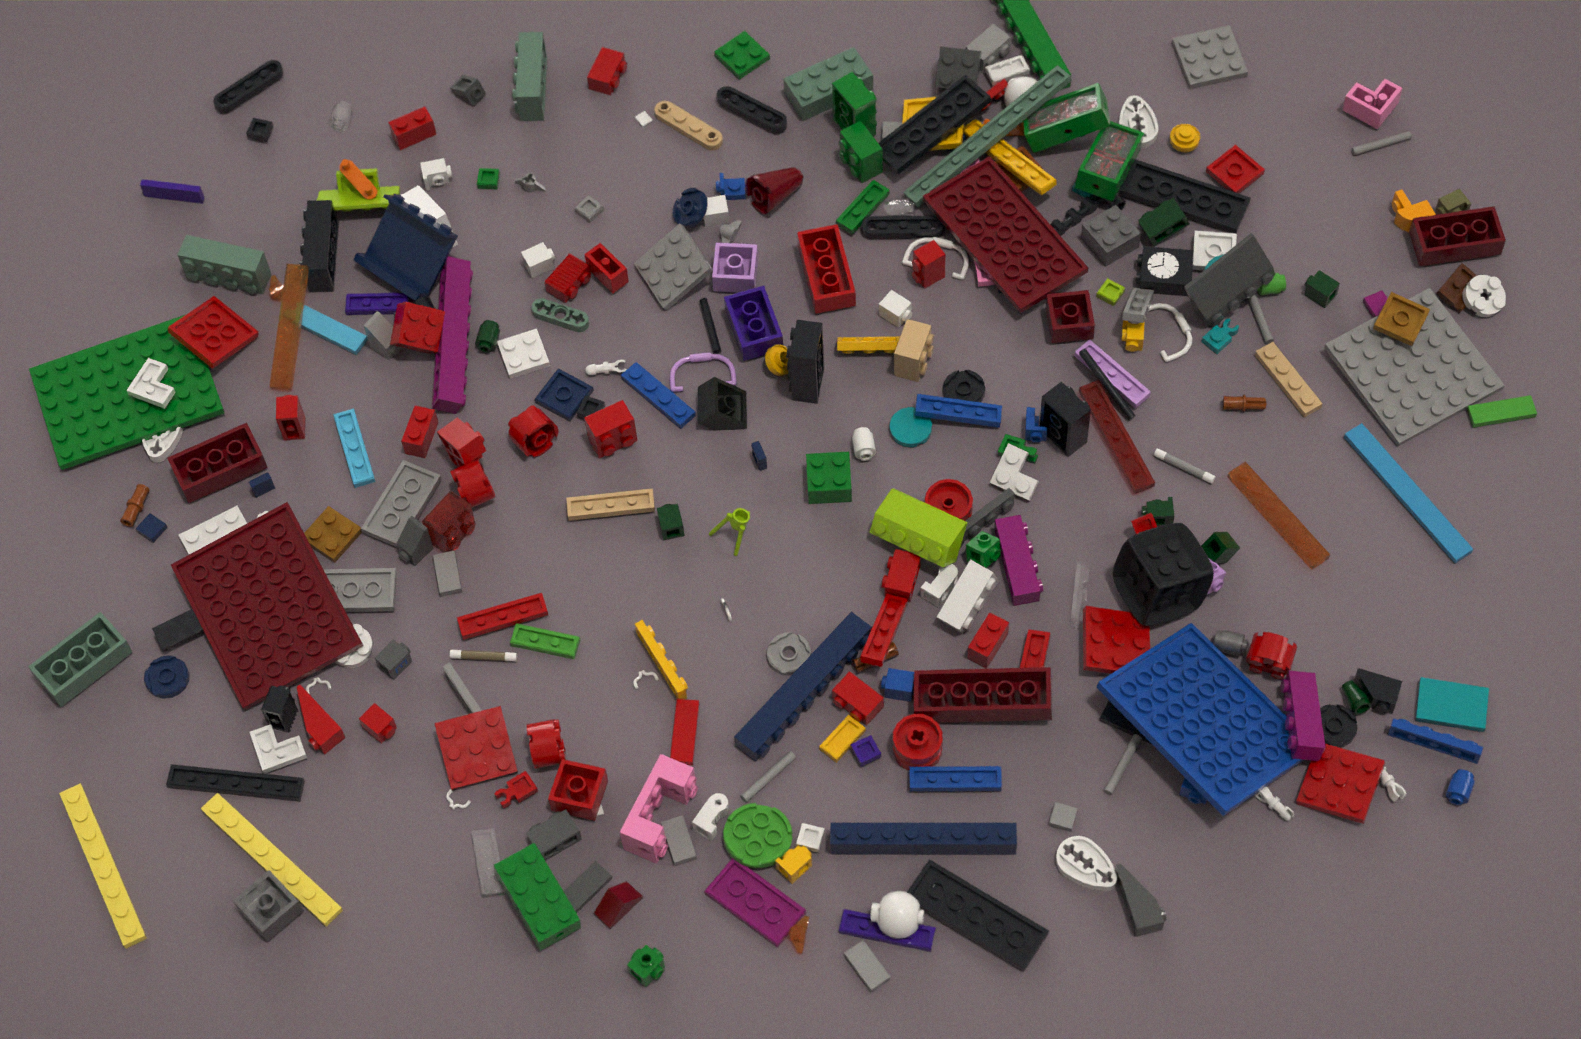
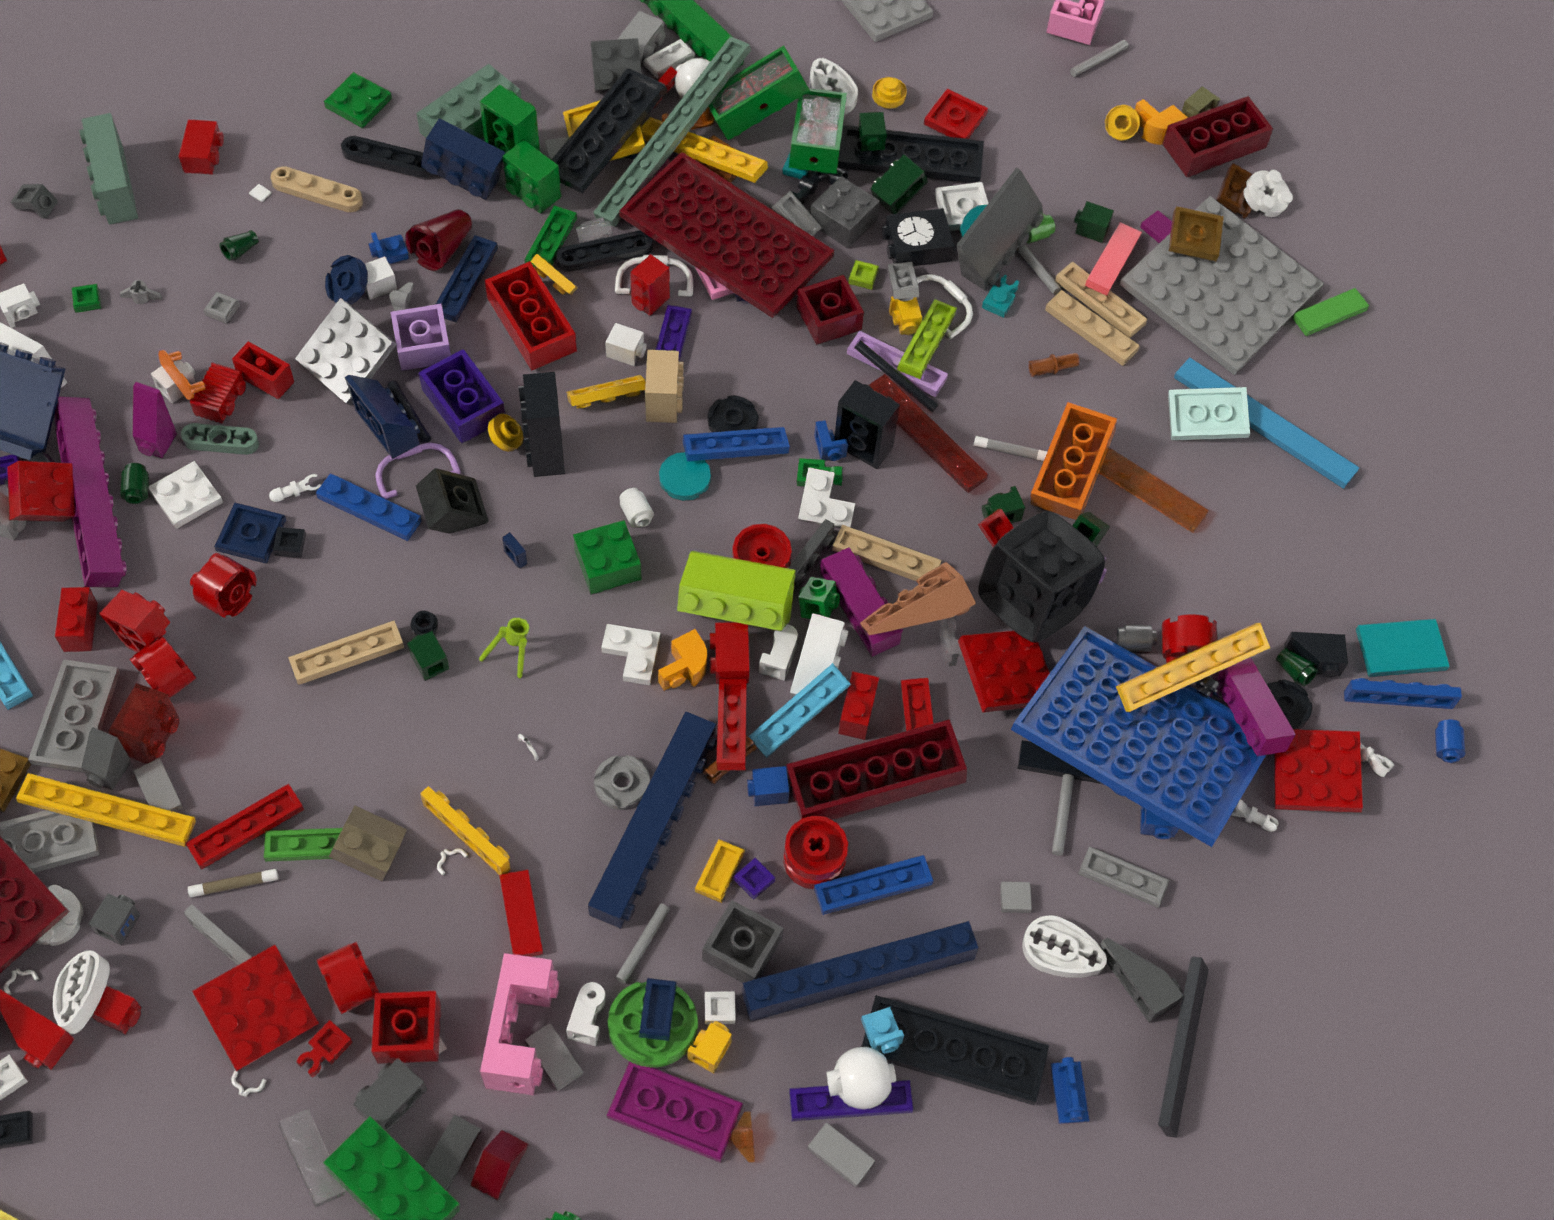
camera: 25 degrees left, 0 degrees up
(357, 702) = (79, 990): none -> white piece
(407, 579) = (106, 809): none -> yellow tile
(511, 291) = (151, 421): none -> magenta slope
(535, 246) = (179, 379): none -> orange piece
(587, 650) = (368, 843): none -> dark tan slope
(611, 429) = (322, 560): red brick -> none
(613, 160) = (237, 245): none -> dark green cone
(674, 491) = (424, 617): none -> black plate
(688, 325) = (382, 415): none -> dark blue slope
(763, 825) = (657, 1009): none -> dark blue tile
(785, 225) = (466, 277): none -> dark blue plate
(808, 126) = (462, 159): none -> dark blue brick
(832, 554) = (639, 648): none -> white plate
(840, 794) = (742, 943): none -> flat silver brick
(849, 232) = (545, 269): none -> yellow plate
(857, 698) = (724, 816): red brick -> none
(868, 576) = (690, 662): none -> light orange brick
(924, 885) = (882, 1030): none -> medium azure bracket
(938, 307) = (674, 329): none -> dark purple tile
(939, 632) = (799, 710): none -> medium azure tile
(1051, 528) = (885, 553): none -> tan plate
(1054, 968) = (1069, 1091): none -> blue hinge
(1069, 230) = (796, 213): none -> light grey tile
(1075, 571) = (936, 597): none -> nougat wedge
(1143, 358) = (927, 339): none -> lime tile
(1153, 959) = (1183, 1047): none -> black tile
(1154, 824) = (1123, 877): none -> light grey tile
(1155, 170) = (872, 131): none -> dark green brick
(1226, 487) = (1073, 461): none -> orange brick
(1262, 675) = (1192, 667): none -> yellow tile
(1272, 695) = (1208, 687): none -> black plate
(1303, 357) = (1109, 307): none -> tan plate
(1326, 324) = (1113, 259): none -> coral tile
(1359, 474) = (1208, 413): none -> light aqua plate
(1378, 206) = (1122, 122): none -> yellow plate

